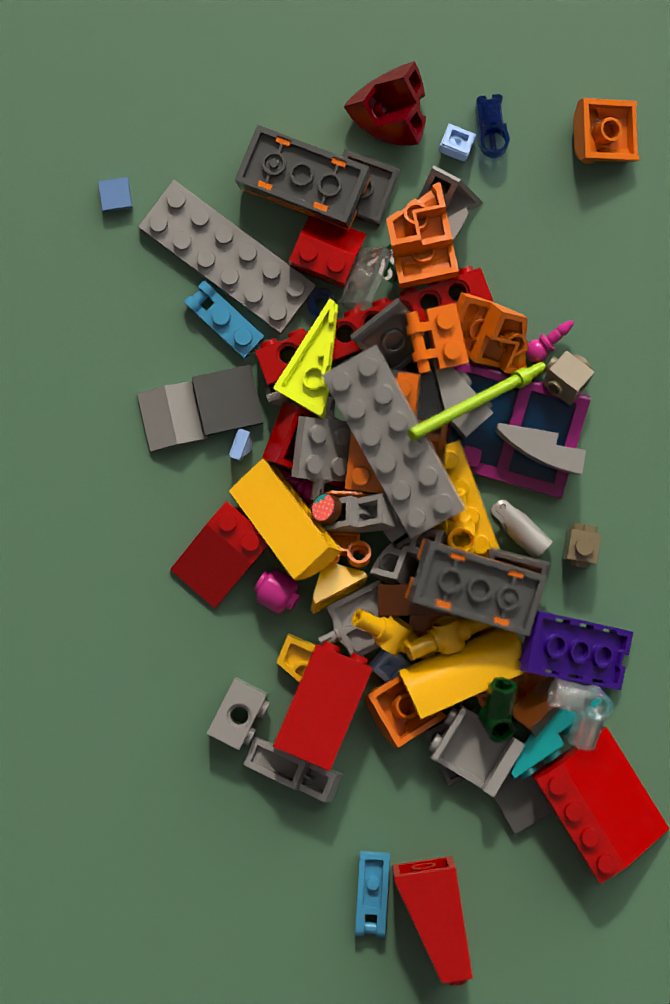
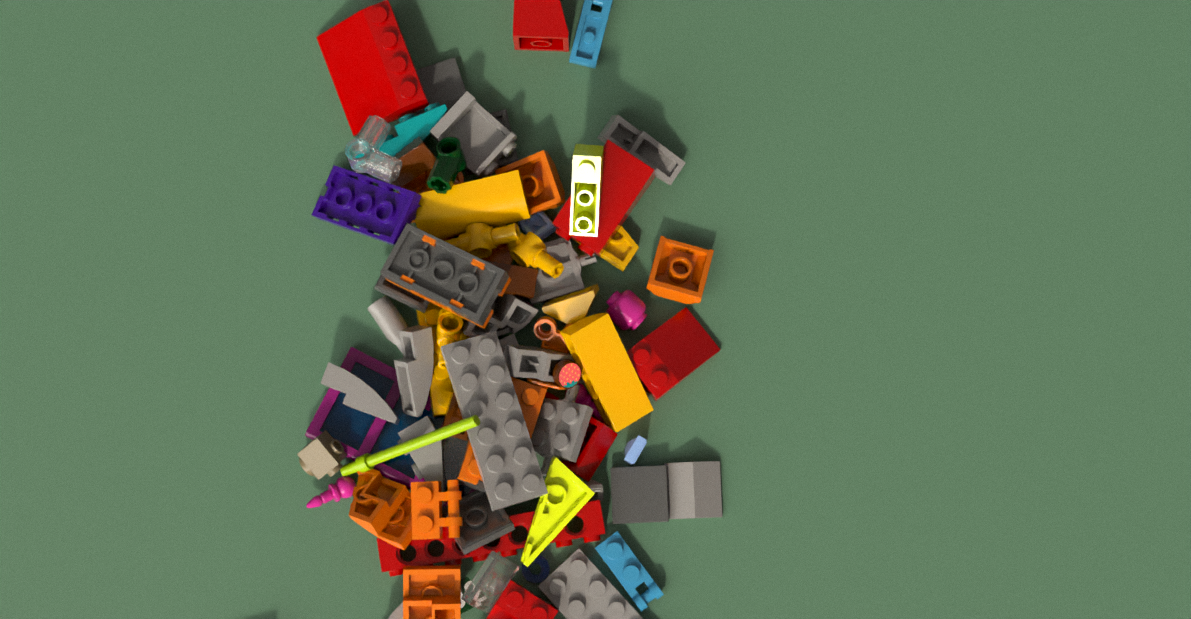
camera: 175 degrees left, 5 degrees down
(227, 644) = (679, 271): none -> orange slope
(239, 695) = (676, 223): light grey brick -> none
(342, 710) = (586, 189): none -> neon yellow slope
(488, 485) = (415, 368): none -> light grey slope
(581, 545) = (341, 299): dark tan brick -> none

